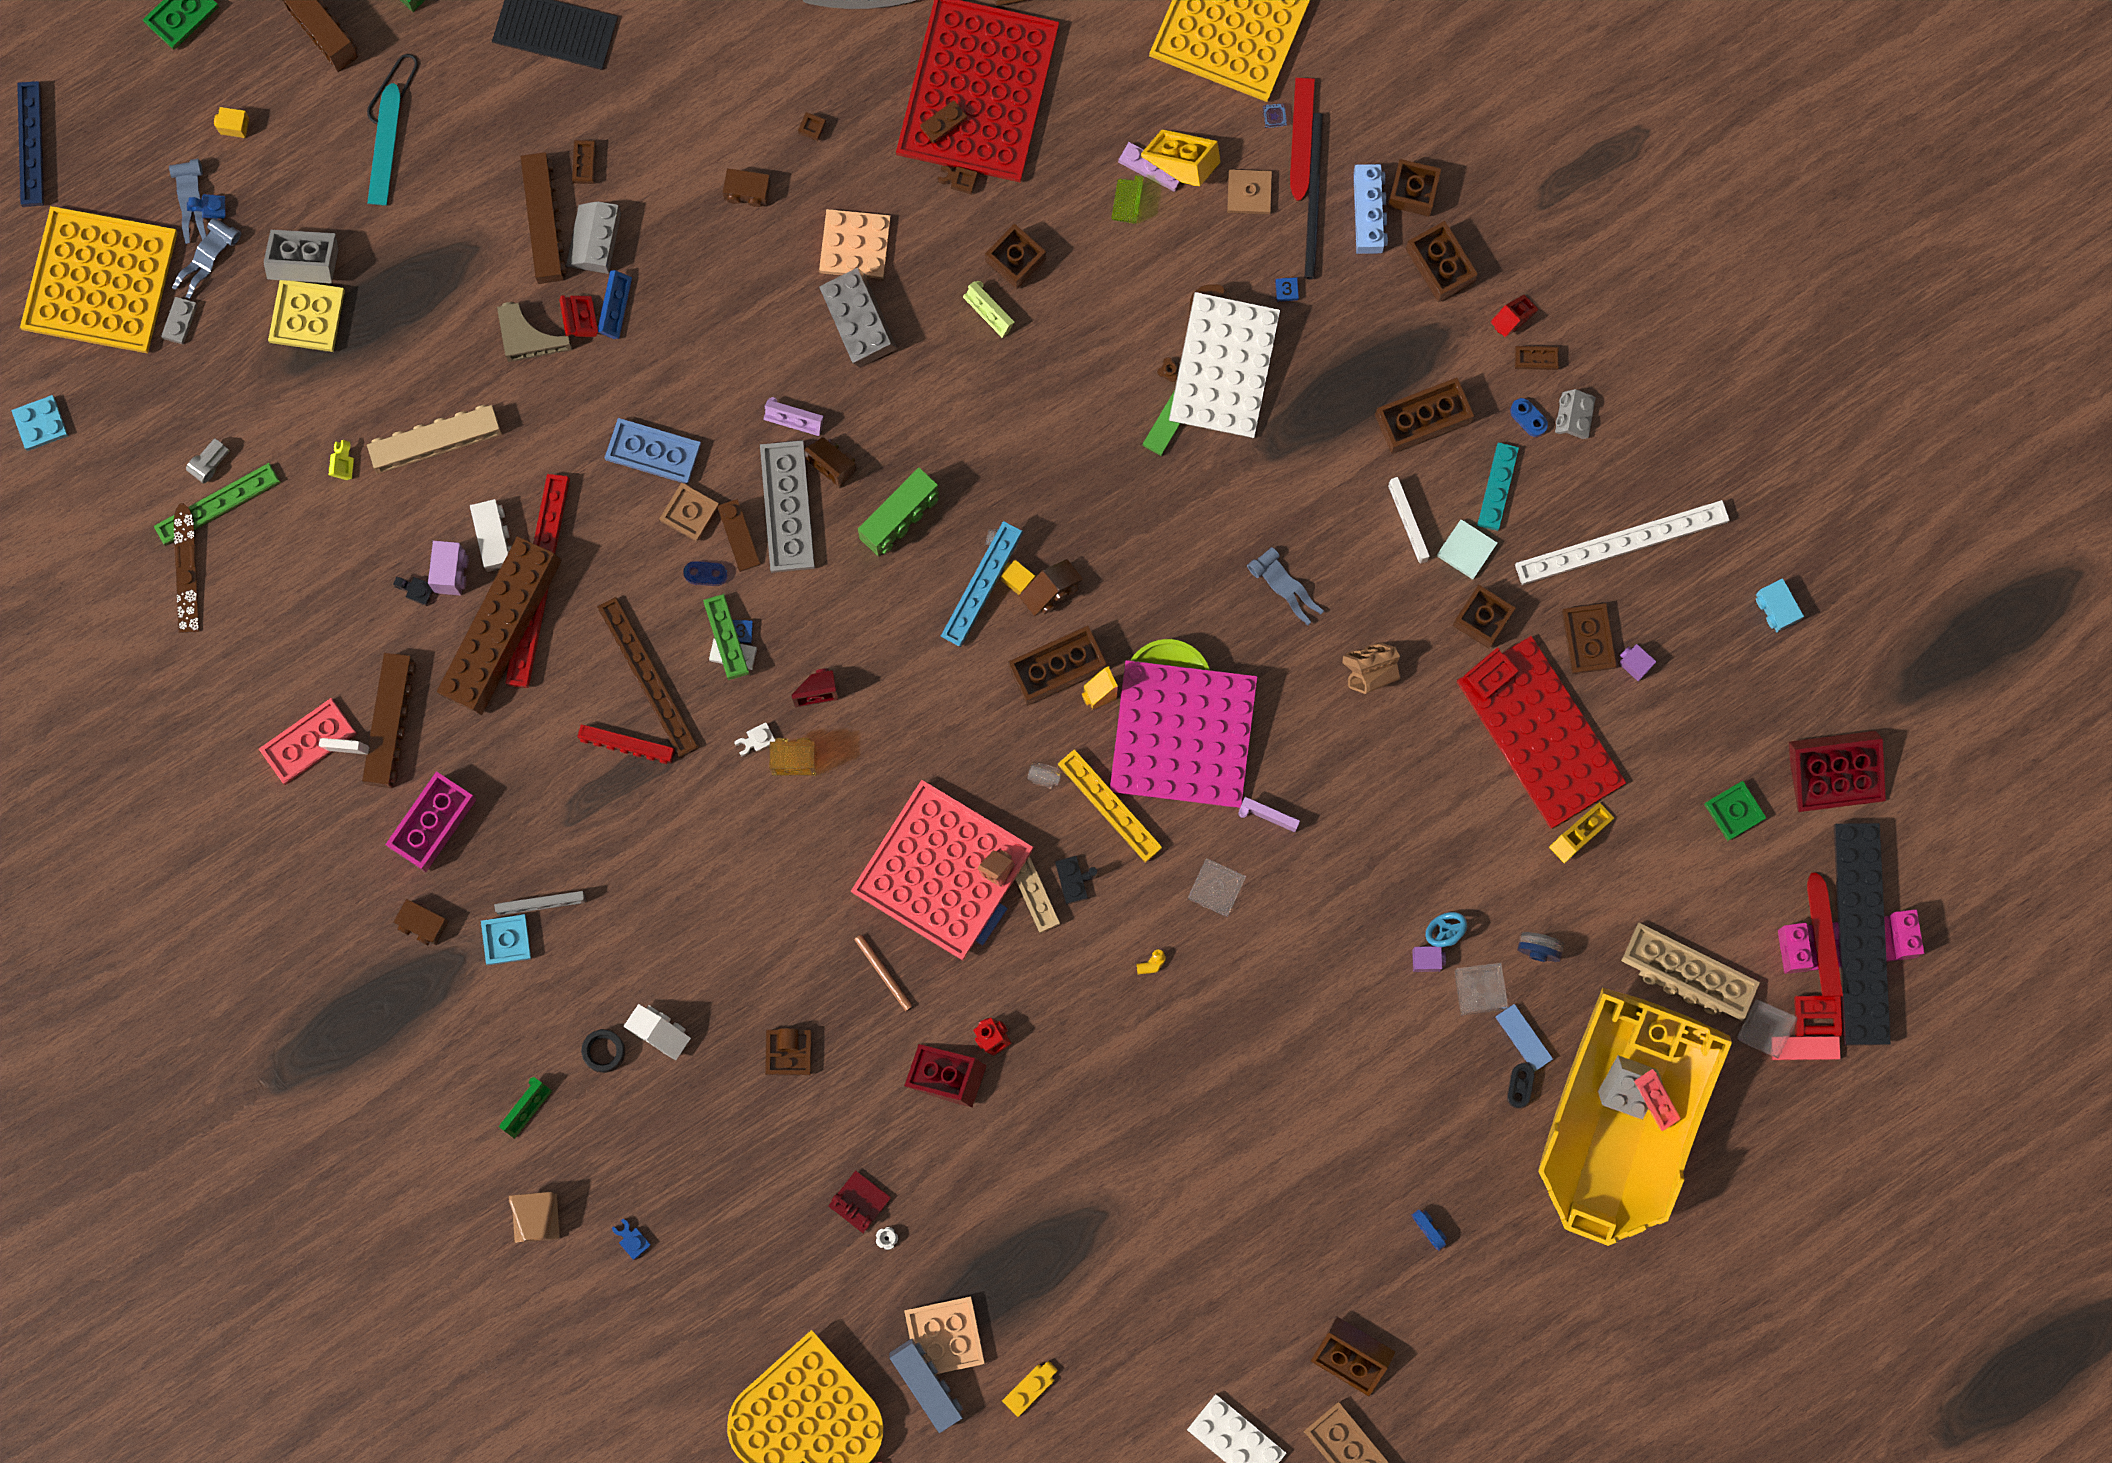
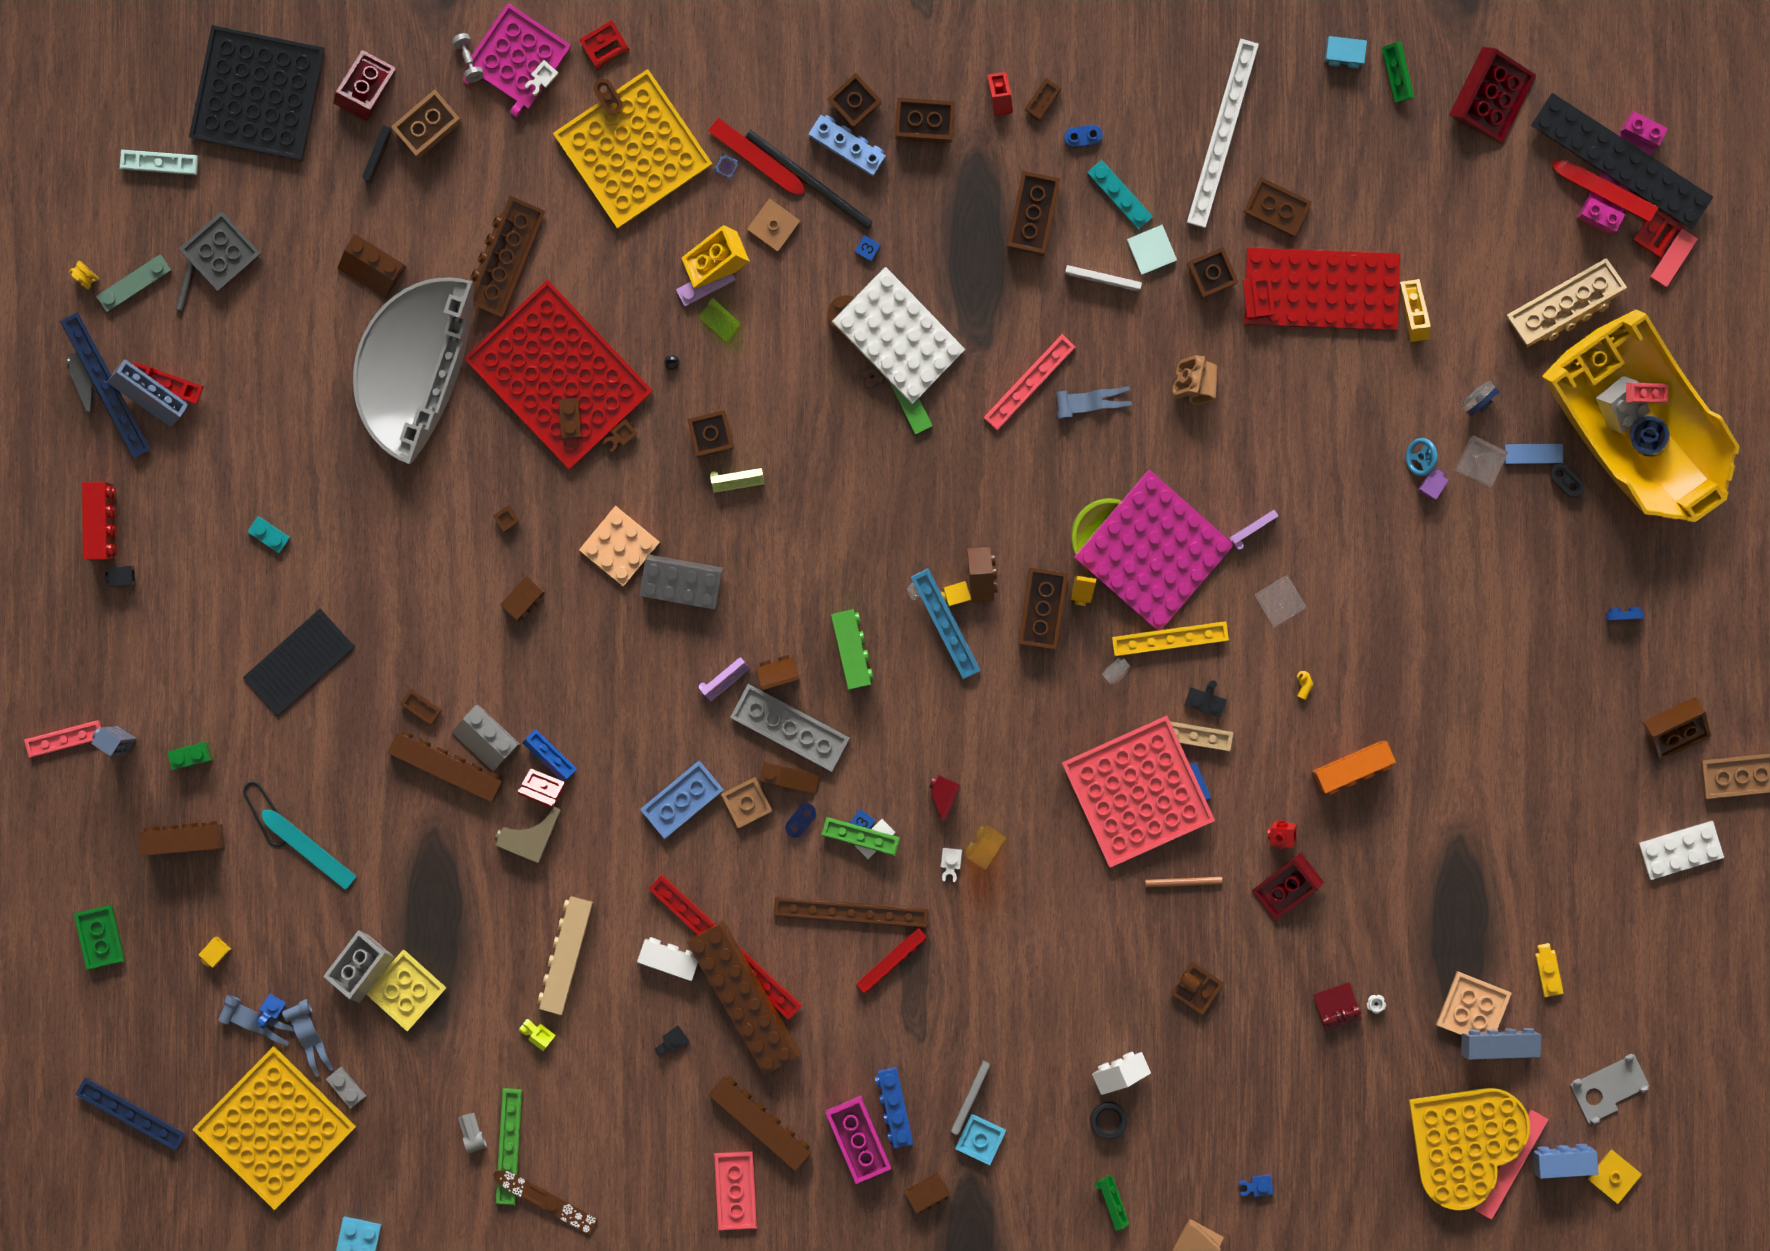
camera: 55 degrees left, 10 degrees up
(343, 746) = (761, 1167): white tile -> none
(447, 568) = (675, 1008): lavender brick -> none
(484, 837) = (895, 1106): none -> blue brick
(996, 867) = (1167, 752): nougat slope -> none
(1055, 184) = (671, 366): none -> black hinge
(1103, 1060) = (1354, 766): none -> orange brick
(1263, 517) = (1029, 382): none -> coral tile
(1575, 413) = (1103, 100): light grey bracket -> none
(1617, 1134) = (1650, 436): none -> dark blue brick
(1636, 661) = (1317, 184): medium lavender brick -> none
(1735, 811) = (1472, 189): green plate -> none
(1767, 1028) = (1642, 276): clear plate -> none
(1795, 667) = (1398, 72): none -> green plate

